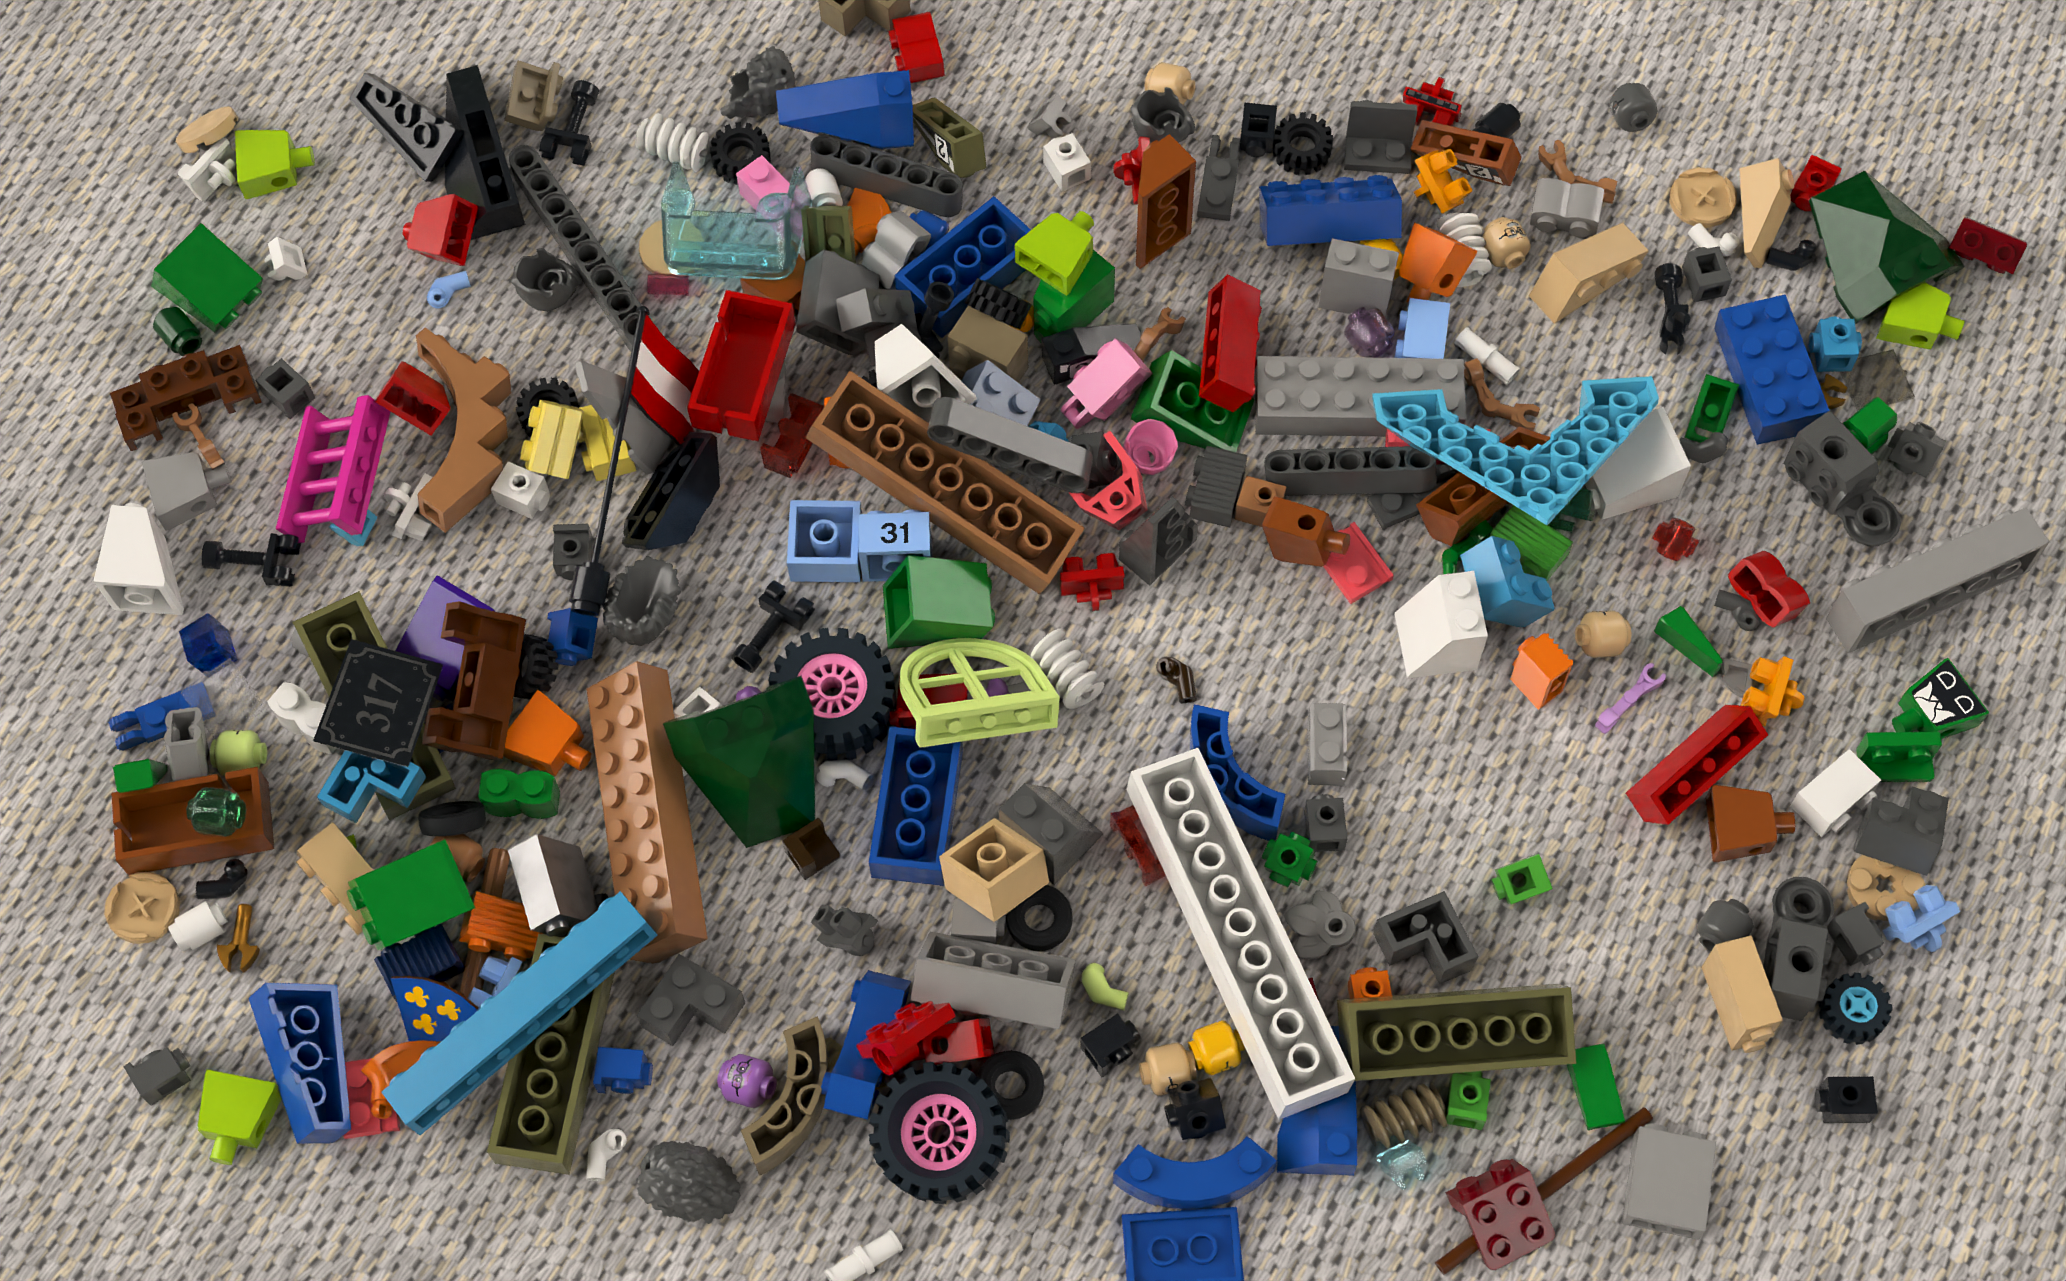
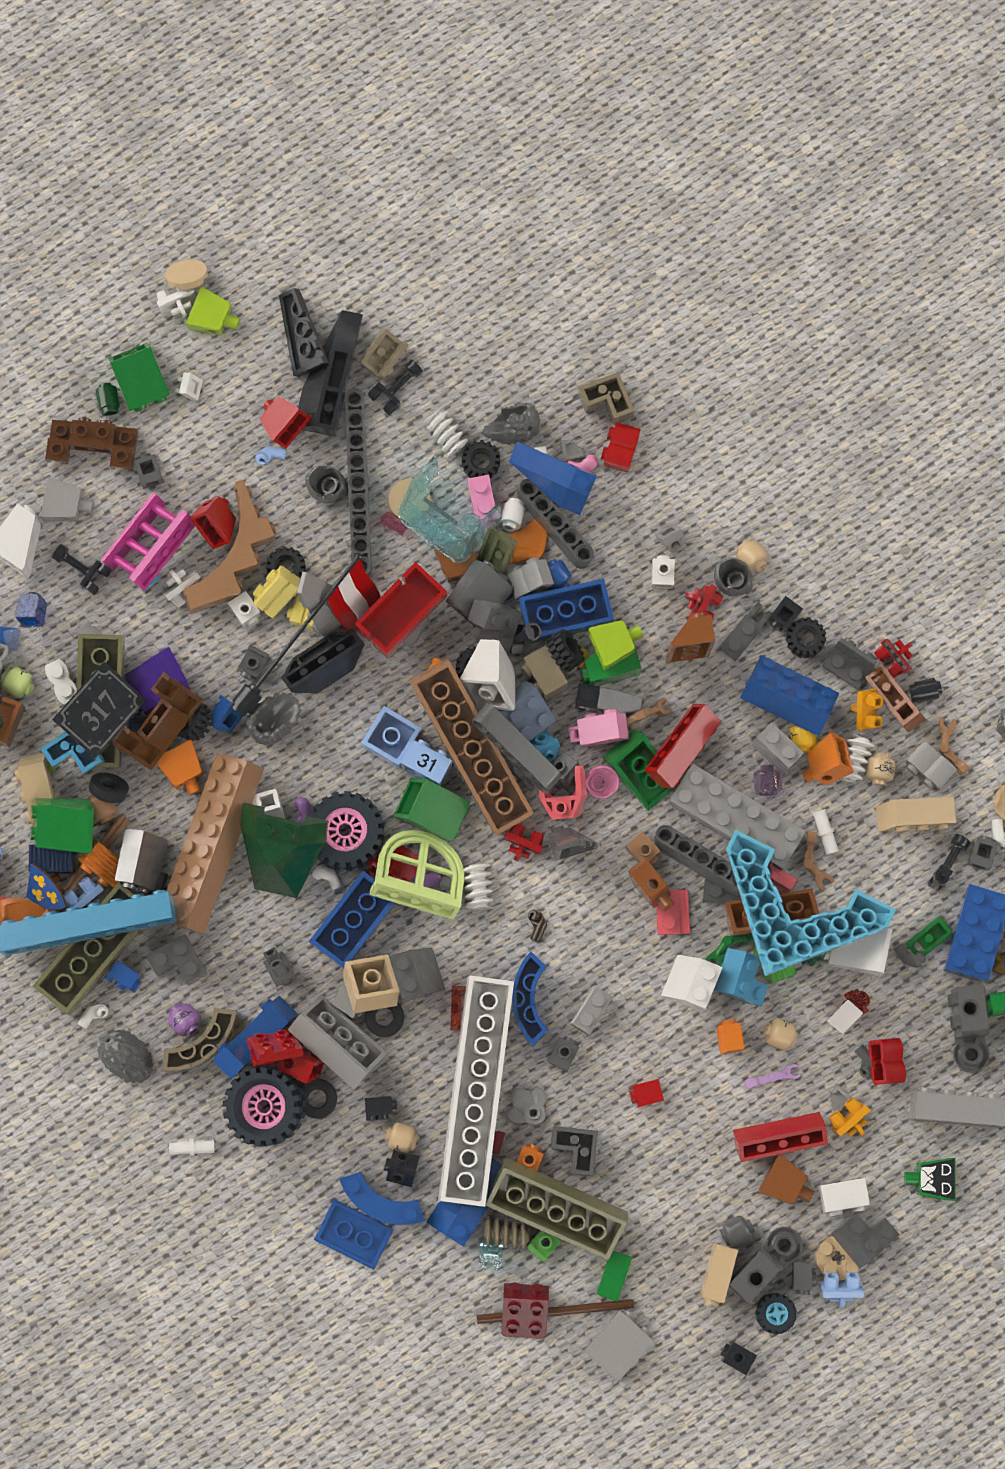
camera: 25 degrees right, 15 degrees up
(205, 446) = (88, 481): medium nougat piece -> none
(511, 794) = (155, 794): green brick -> none
(748, 655) = (315, 779): black bar -> none
(792, 444) = (410, 663): clear red window -> none
(810, 849) = (287, 911): dark brown panel -> none
(950, 137) = (605, 517): olive slope -> none
(1099, 990) = (391, 1074): yellowish green arm -> none
(1216, 1048) = (431, 1141): yellow head -> none
(1217, 486) = (625, 825): dark grey brick -> none
(1293, 873) = (538, 1061): green brick -> none
(1424, 329) = (797, 799): light blue brick -> none
(1475, 811) = (646, 1093): none -> red brick
(1535, 879) = (649, 1152): bright green brick -> none
(1673, 563) = (845, 1017): none -> white sticker
(1686, 637) = (824, 1059): green slope -> none
(1900, 755) = (891, 1196): green bracket -> none

